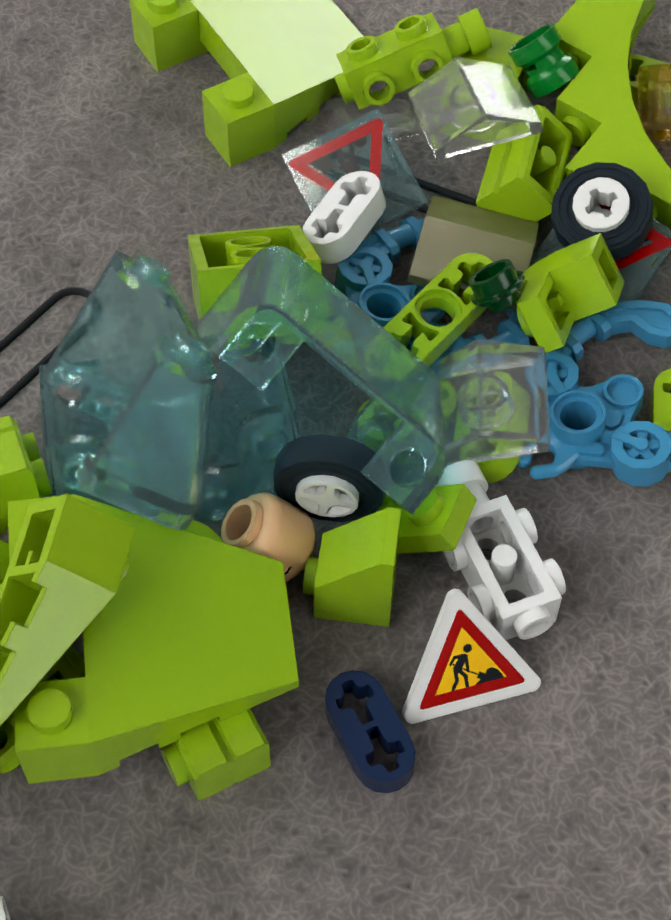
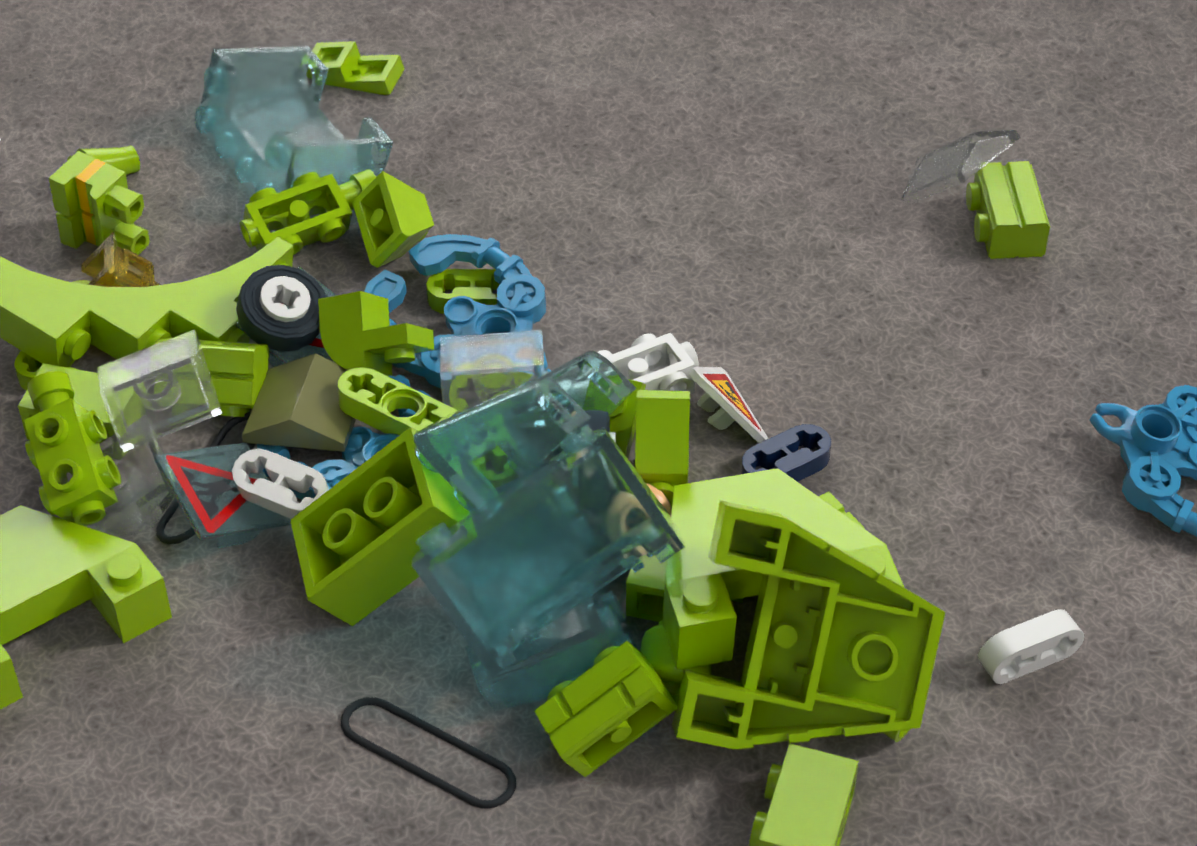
camera: 95 degrees left, 10 degrees down
(496, 285) = (375, 354): dark green plate -> none
(543, 60) = (88, 344): green wheel -> none

